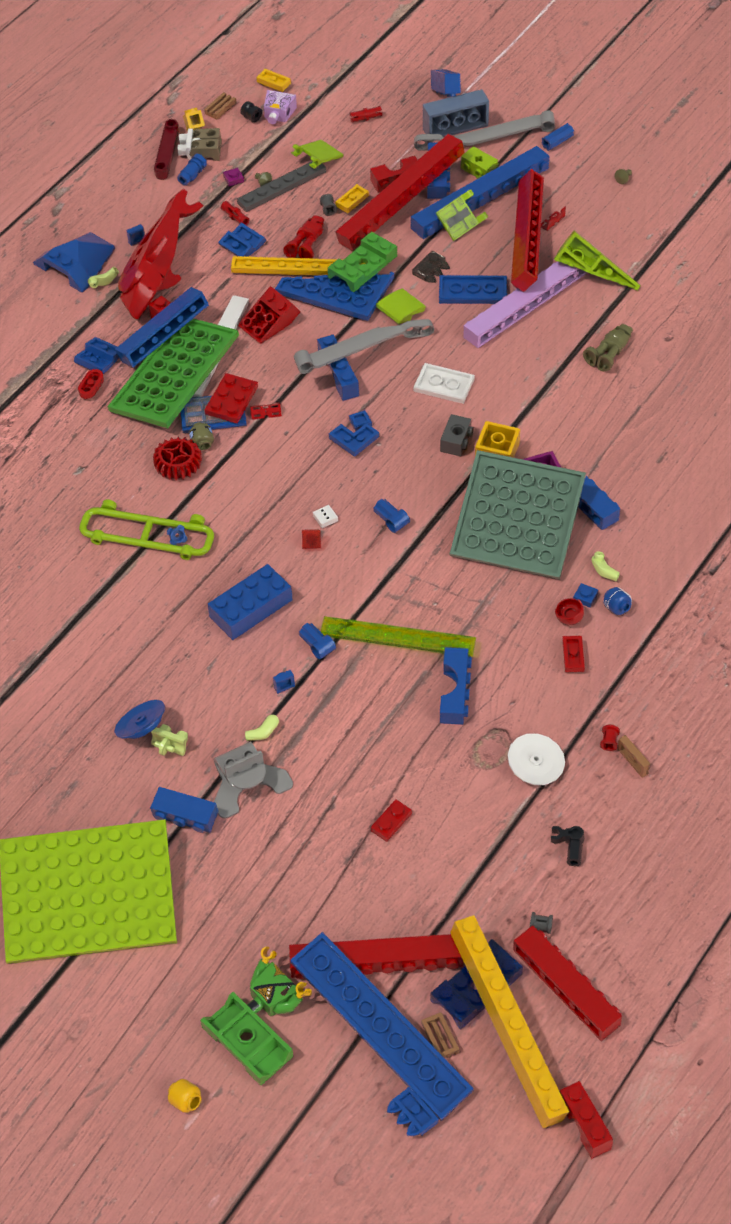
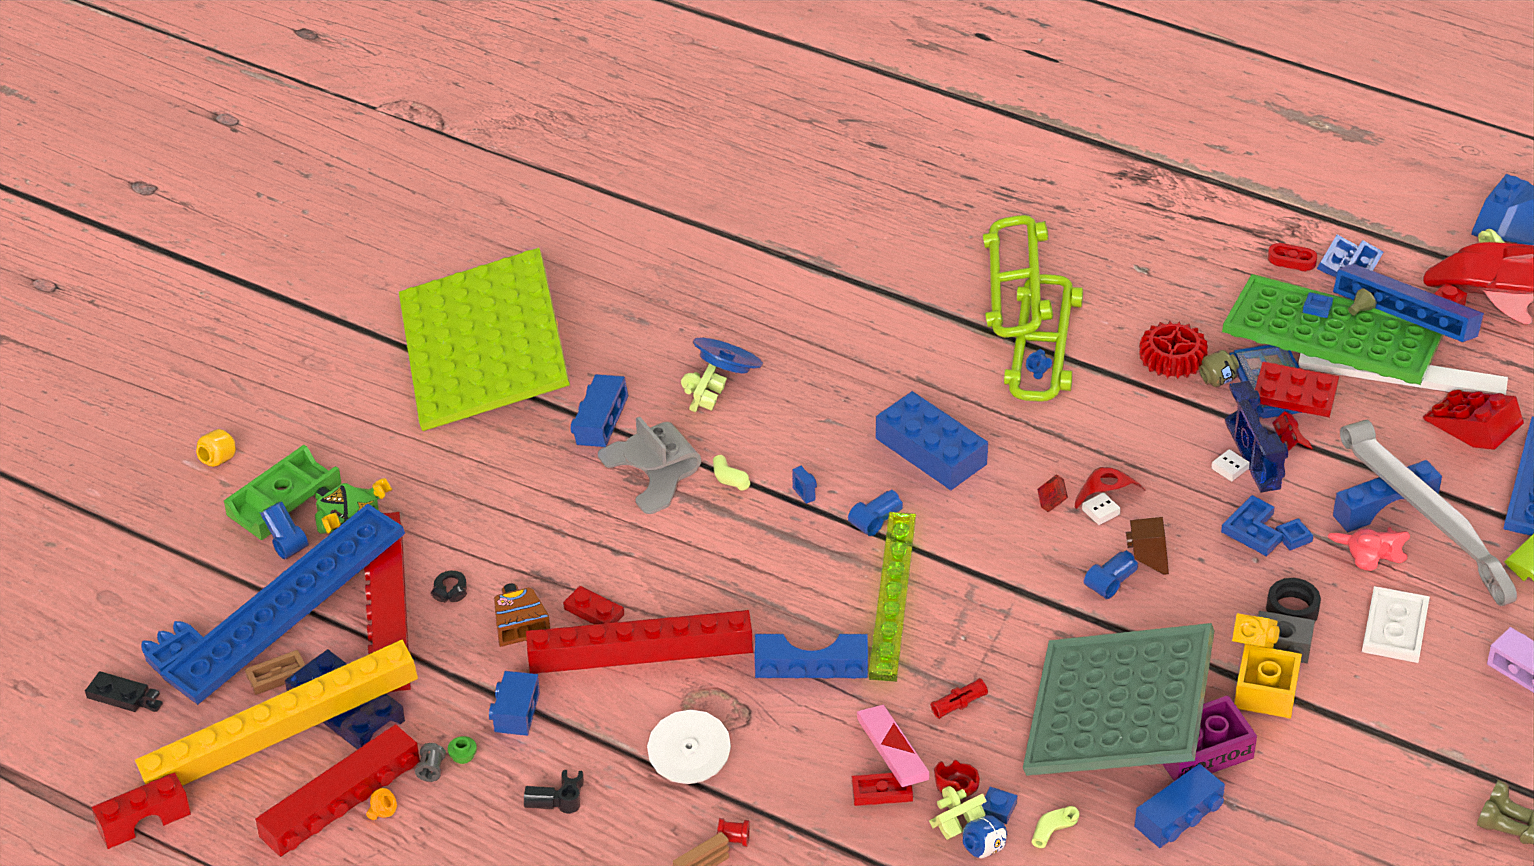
camera: 85 degrees right, 10 degrees down
(38, 517) = (1040, 309): none -> lime bar
(153, 373) = (1318, 305): none -> blue tile
(156, 348) = (1363, 301): none -> olive rock
(264, 425) = (1262, 450): none -> clear blue piece
(292, 444) = (1230, 465): none -> white tile
(297, 1031) = (286, 536): none -> blue piece
(307, 517) = (1094, 483): none -> red piece
(369, 910) = (454, 595): none -> black piece
(376, 484) = (1149, 543): none -> reddish brown slope
(381, 383) = (1370, 546): none -> coral animal
(399, 866) = (517, 613): none -> dark orange torso
(425, 437) = (1298, 589): none -> black tyre
(435, 789) = (639, 641): none -> red brick
(455, 1150) = (122, 693): none -> black plate
(468, 438) = (1255, 631): none -> yellow brick
(487, 867) = (515, 703): none -> blue brick
(496, 607) = (959, 698): none -> red pin
(526, 909) = (462, 749): none -> bright green plate
(539, 643) = (893, 745): none -> bright pink tile
(577, 955) = (382, 804): none -> light orange plate
(596, 612) = (948, 820): none -> yellowish green hips

